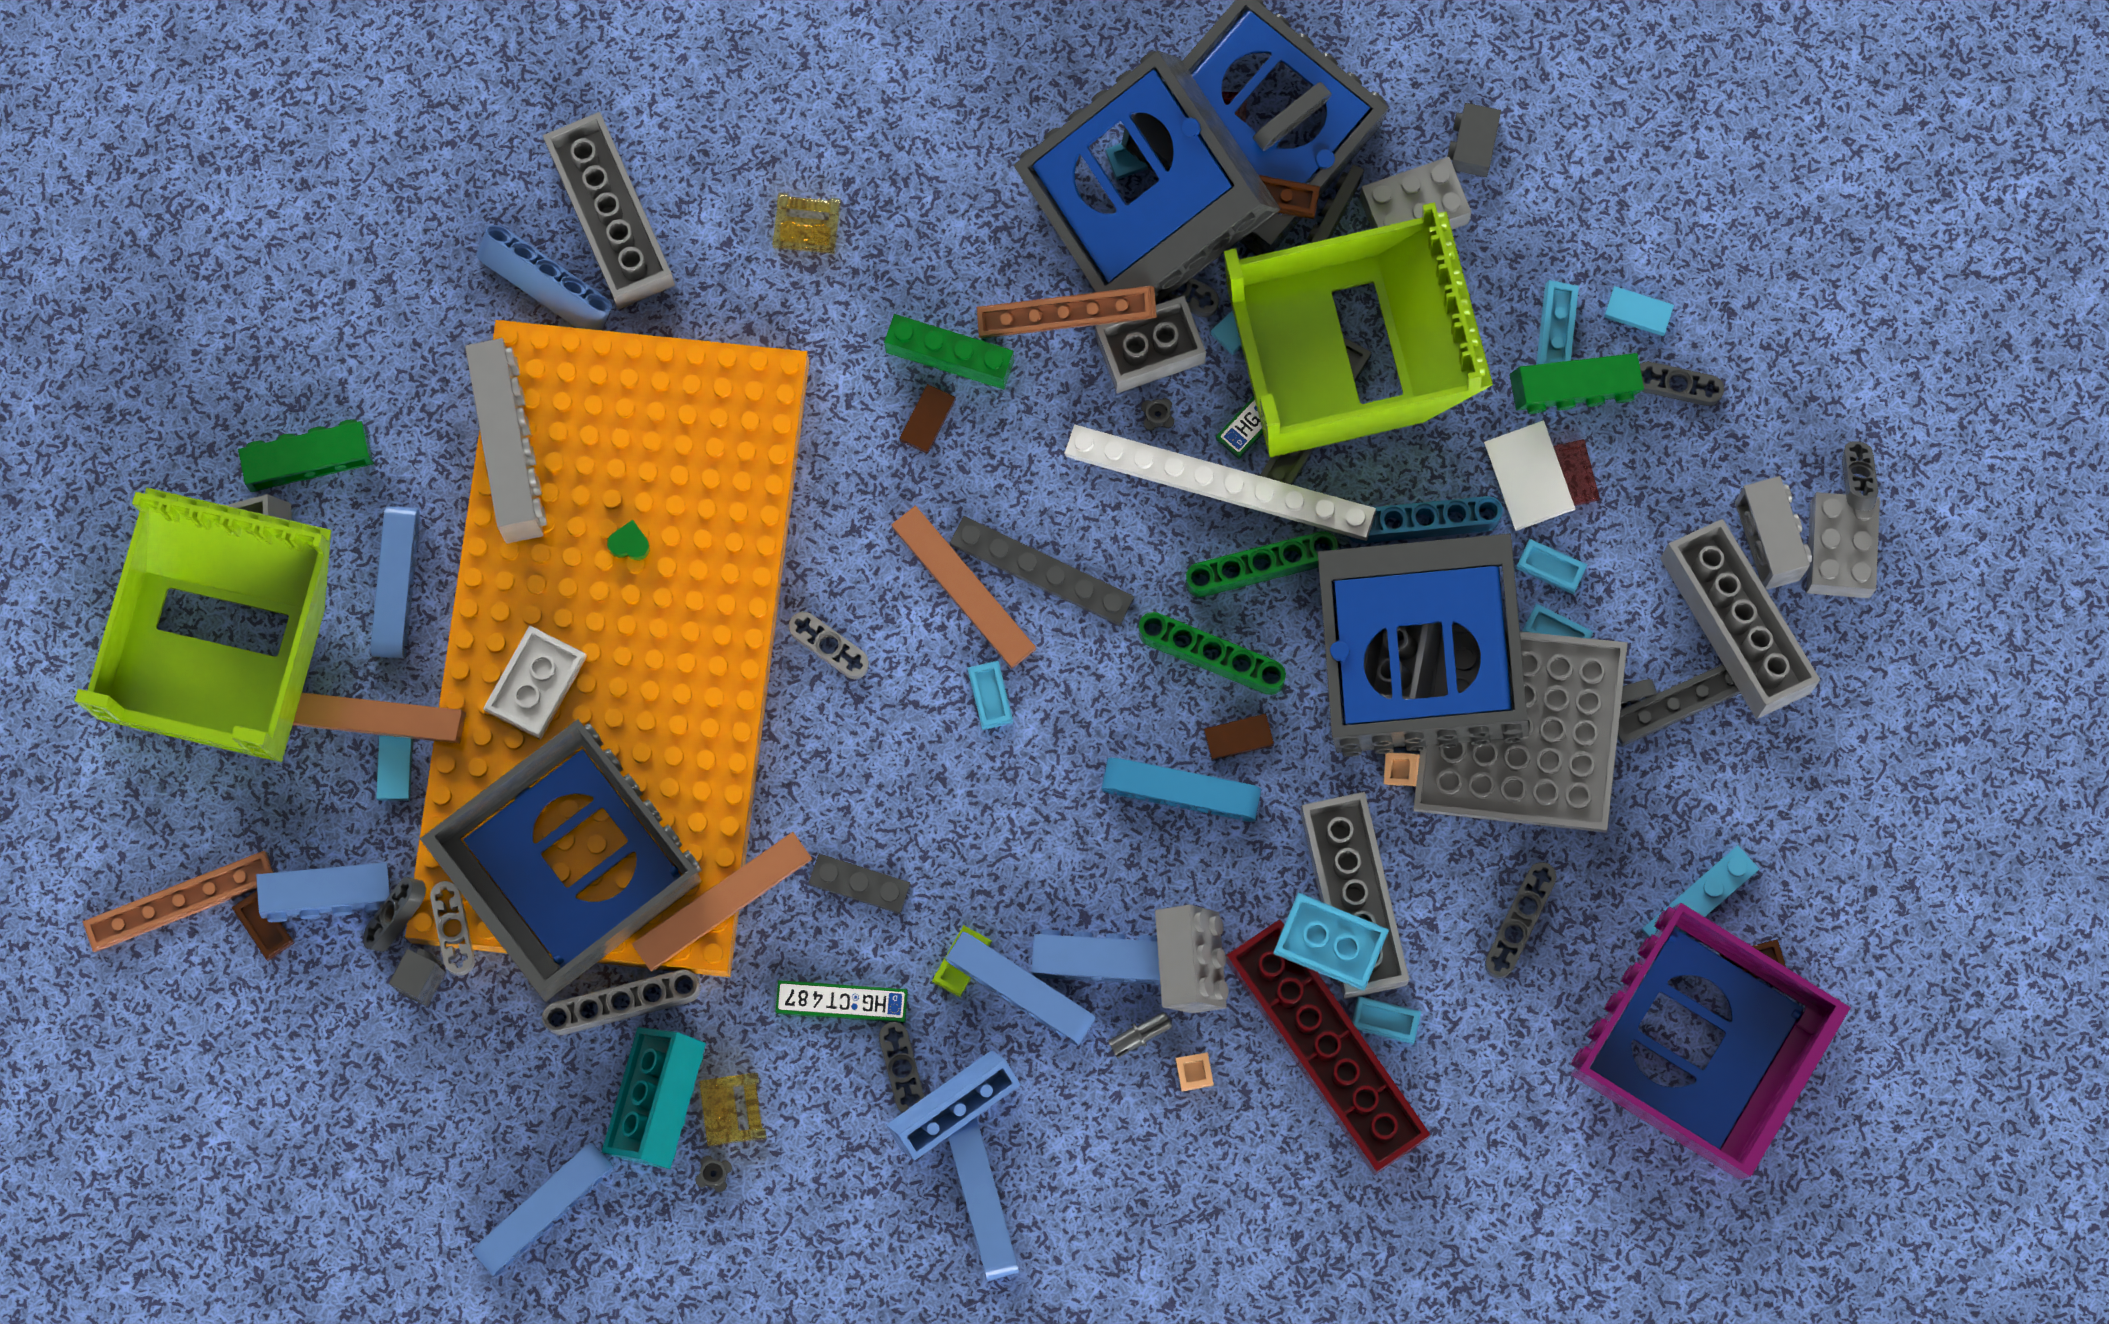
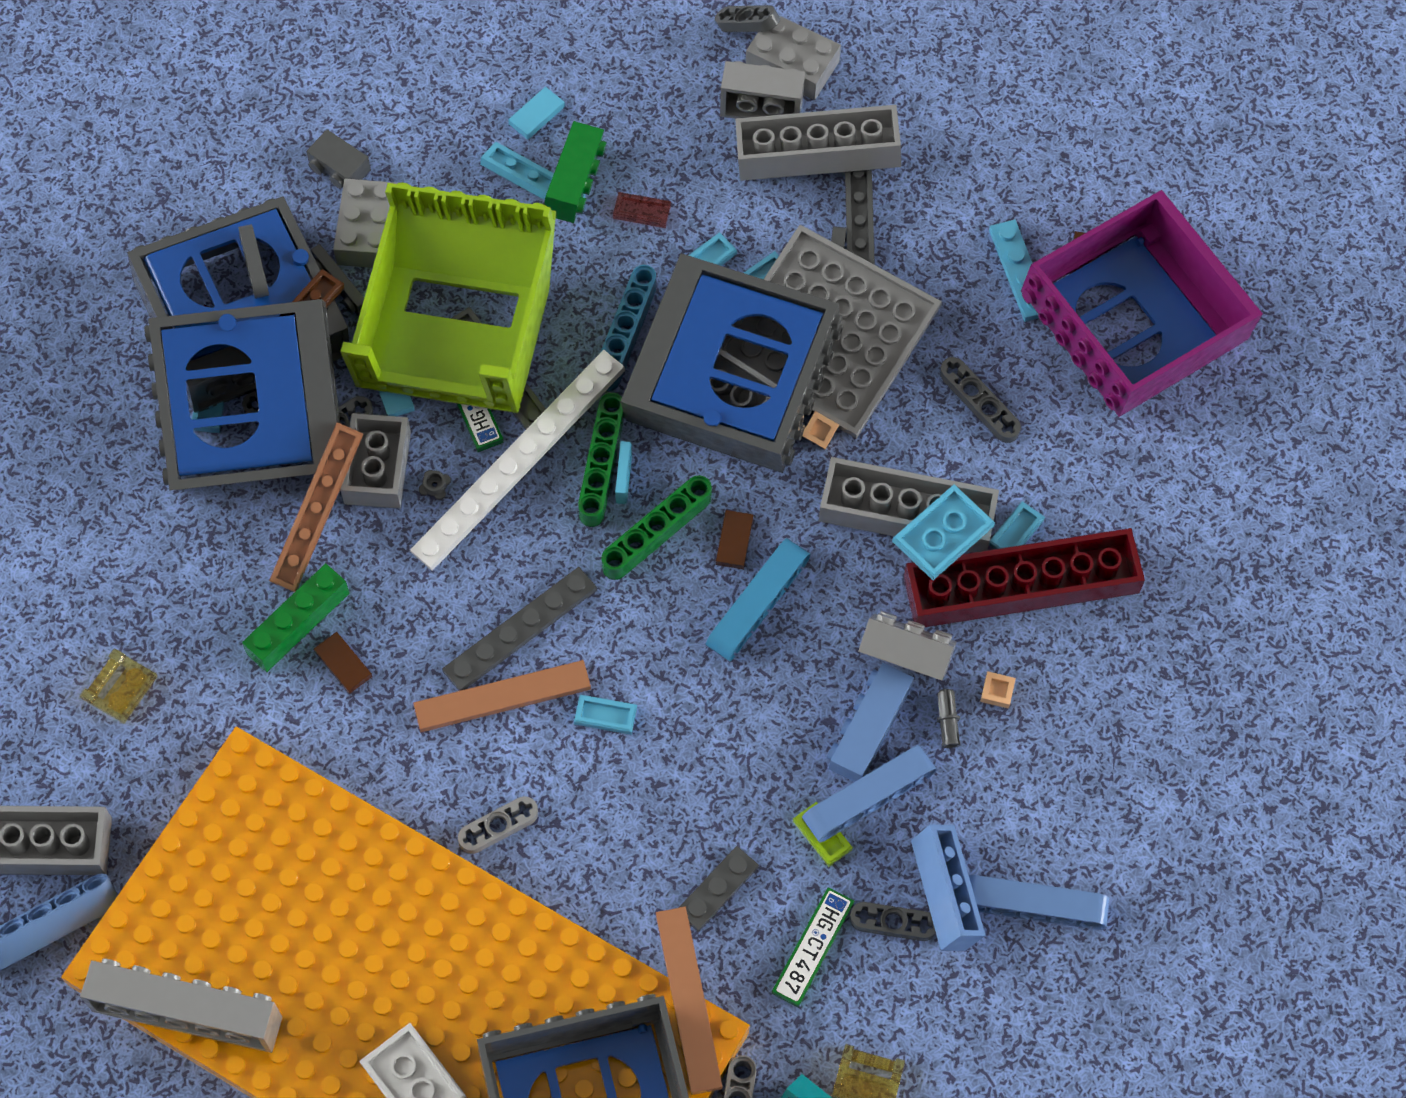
camera: 70 degrees left, 10 degrees down
(628, 542) = (328, 942): green tile -> none
(1257, 592) = (623, 472): none -> medium azure tile
(1529, 475) = (628, 239): white tile -> none
(1688, 375) = (610, 100): dark grey beam -> none

